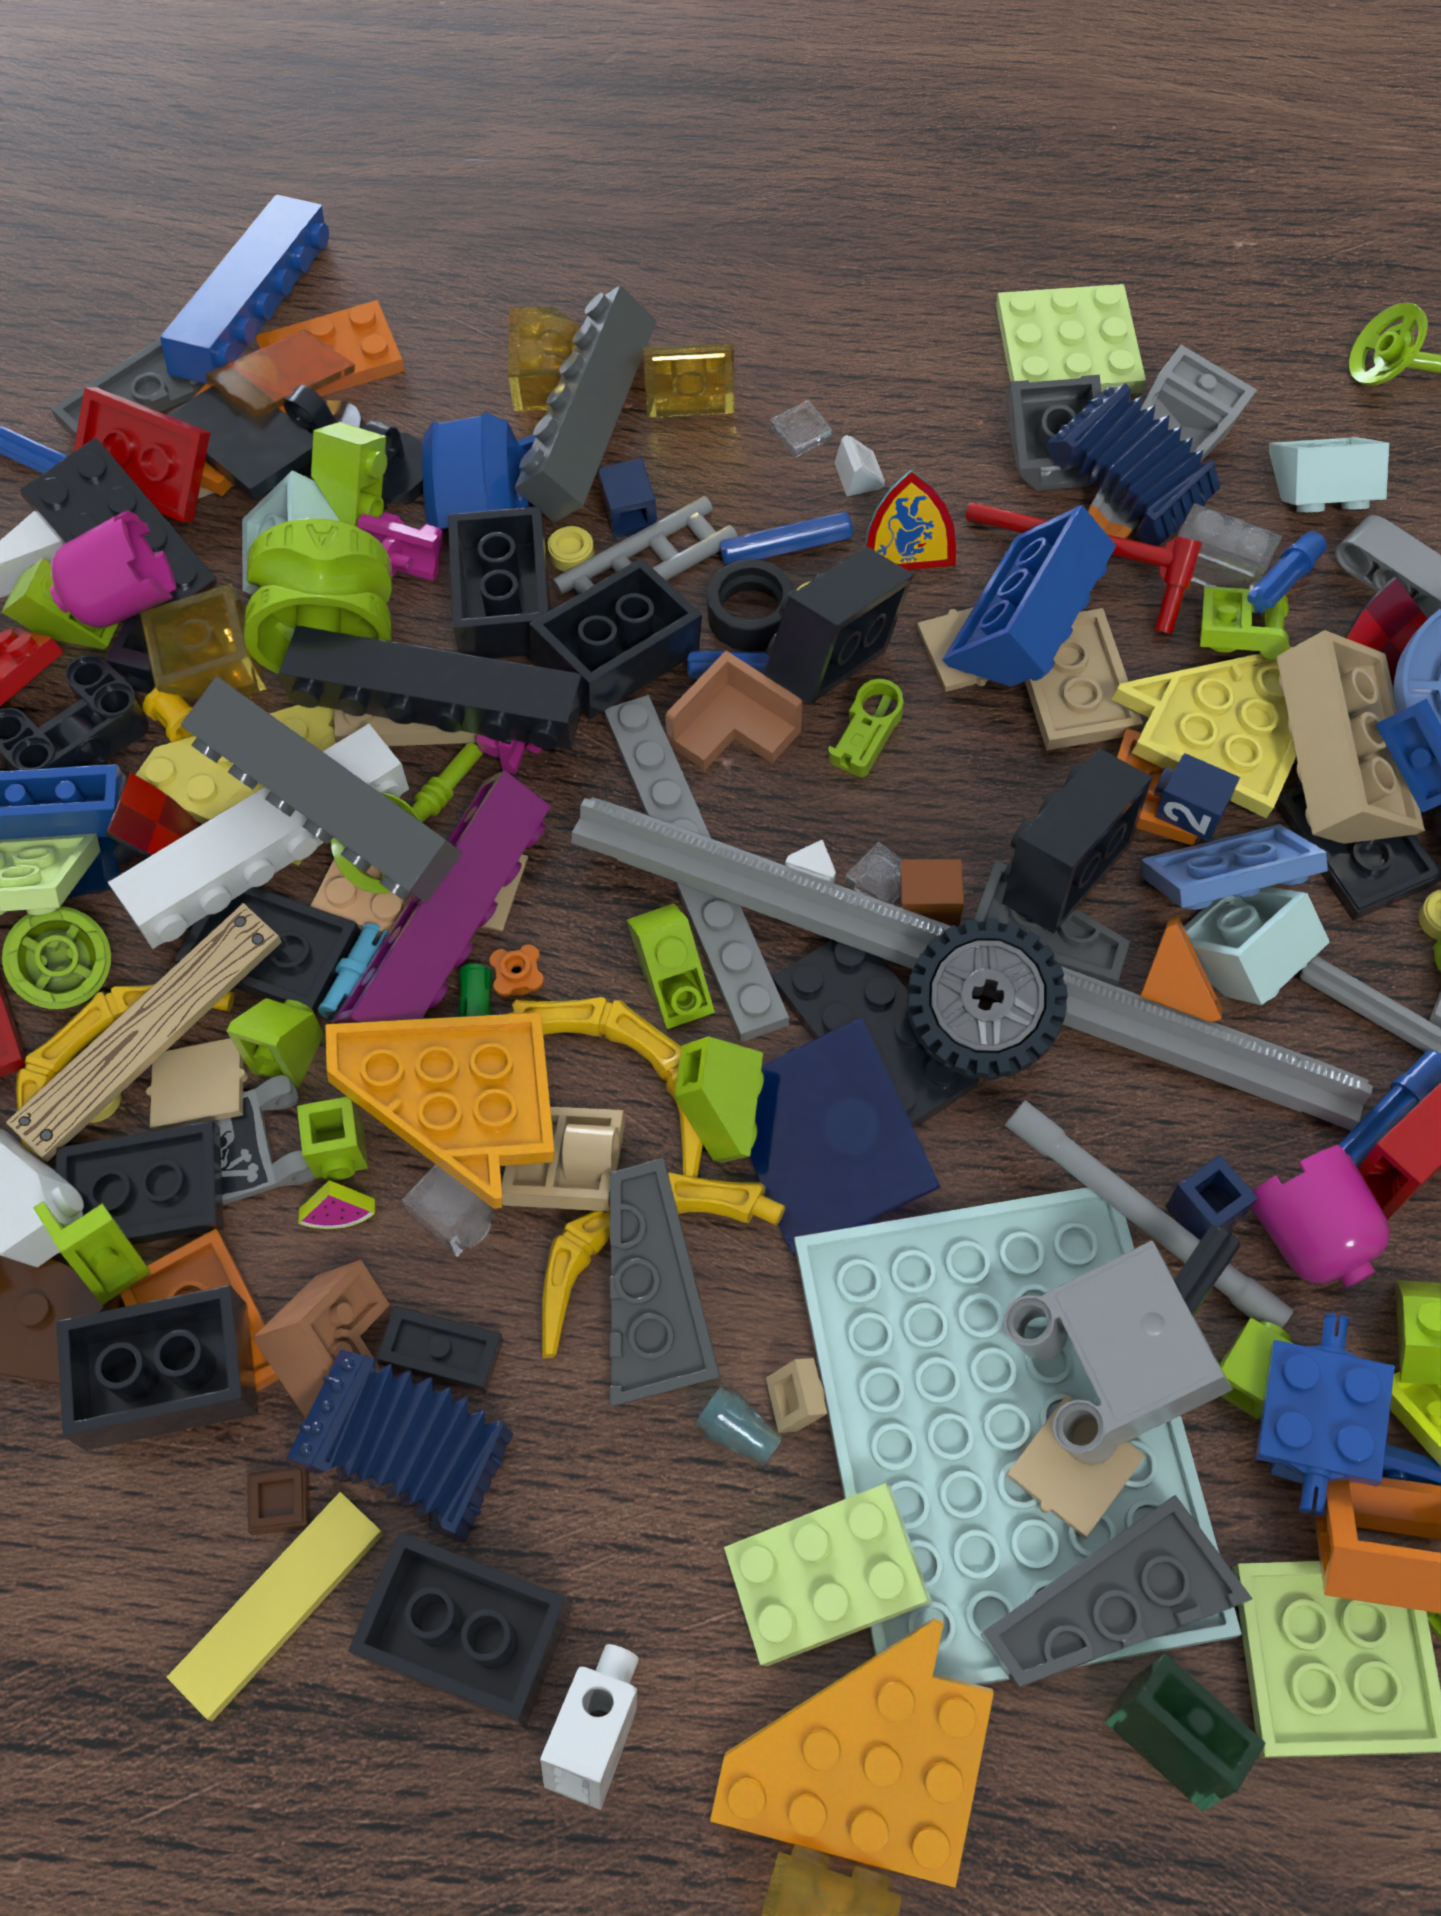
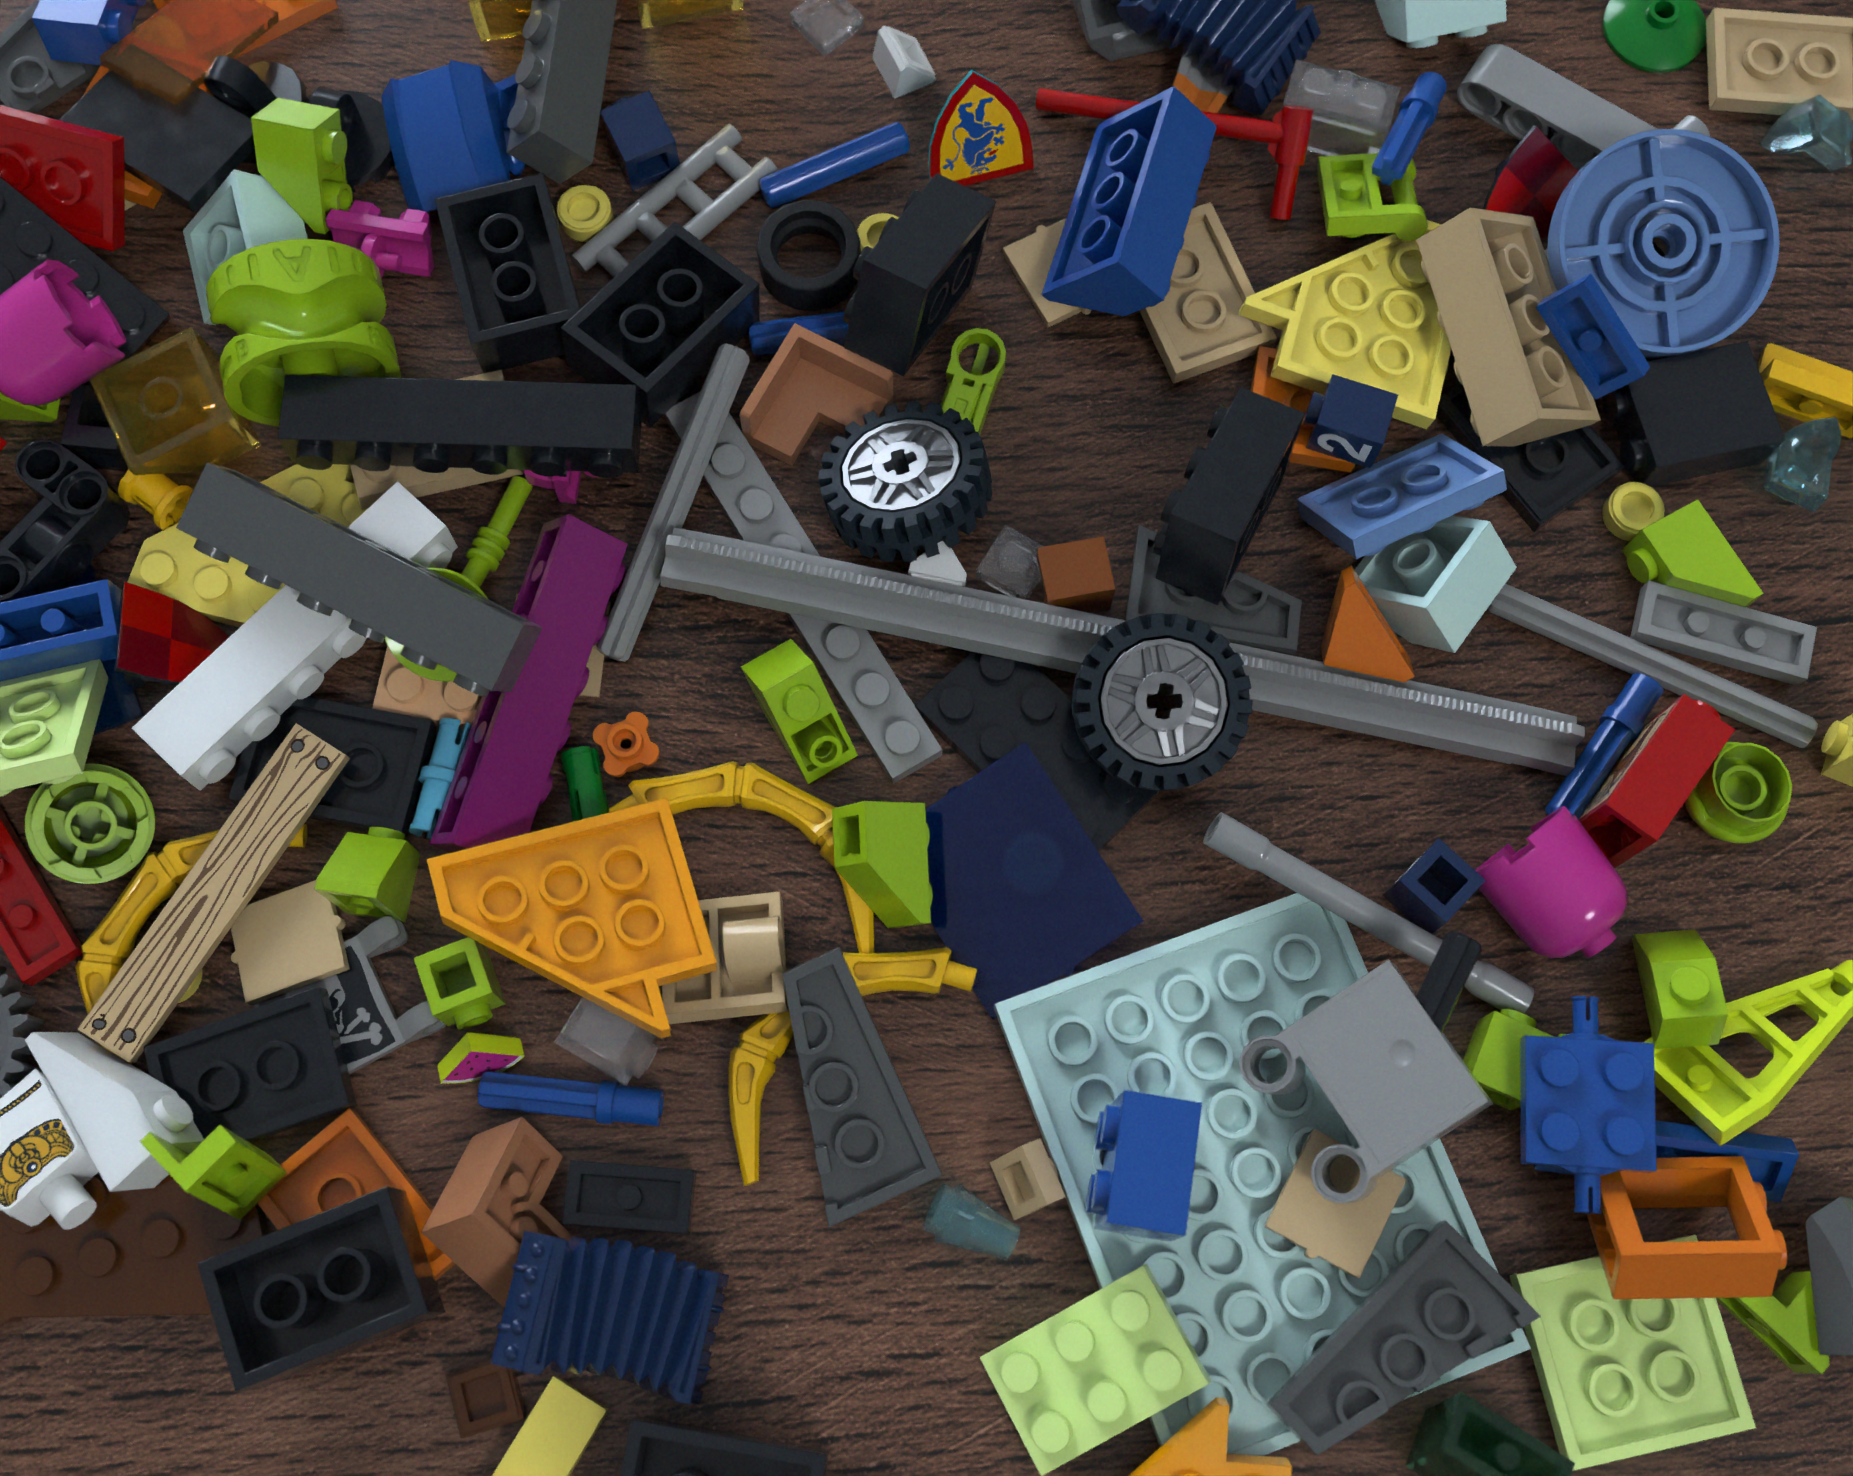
camera: 15 degrees left, 10 degrees up
(434, 1264) = (602, 1101): none -> blue axle
(596, 779) = (673, 501): none -> light grey axle
(797, 790) = (906, 481): none -> wheel
(905, 1381) = (1145, 1166): none -> blue brick

